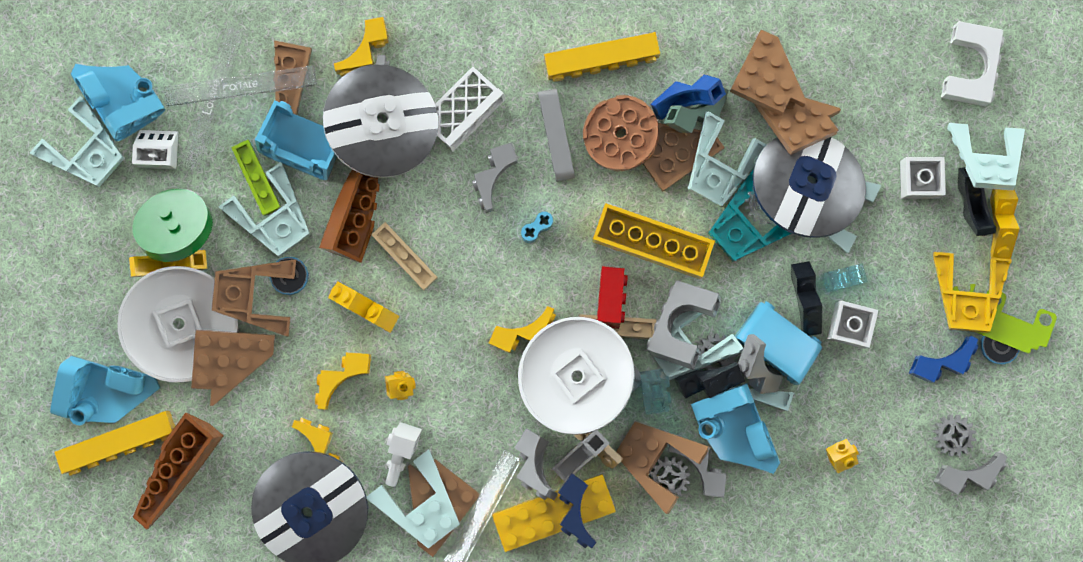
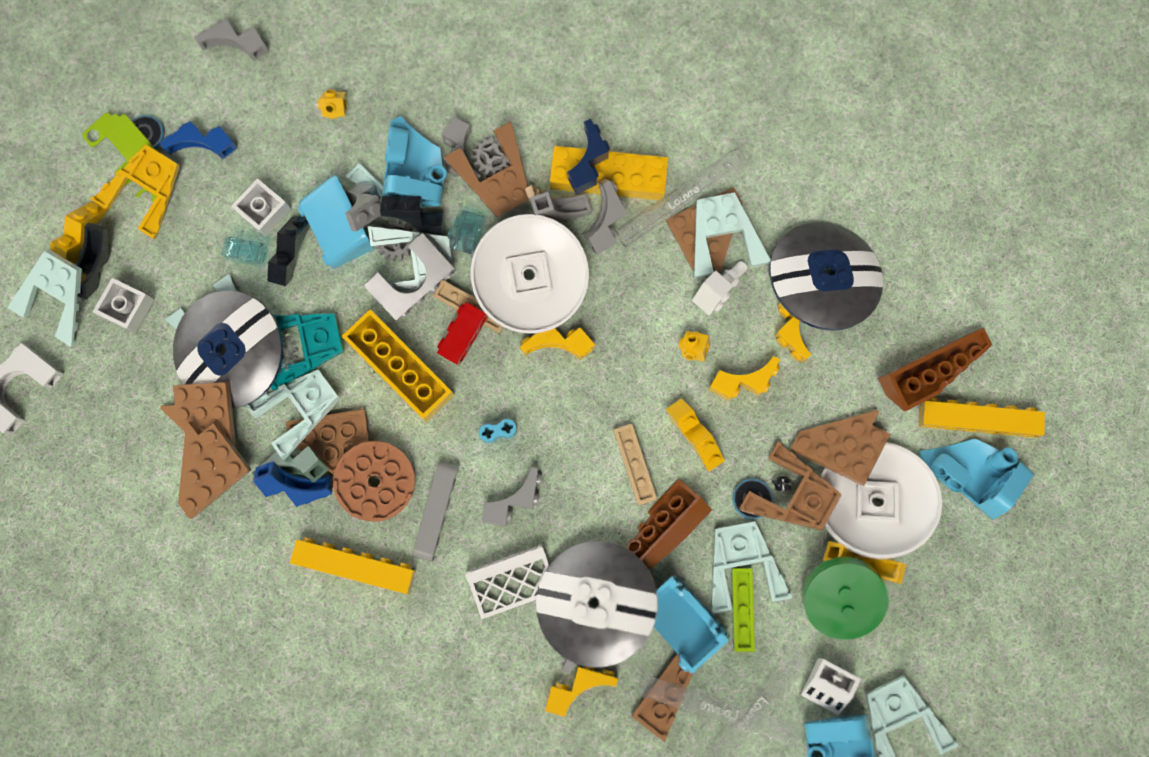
camera: 150 degrees left, 5 degrees down
(268, 300) = (782, 483): none -> black plate
(953, 427) = (230, 81): light grey gear -> none

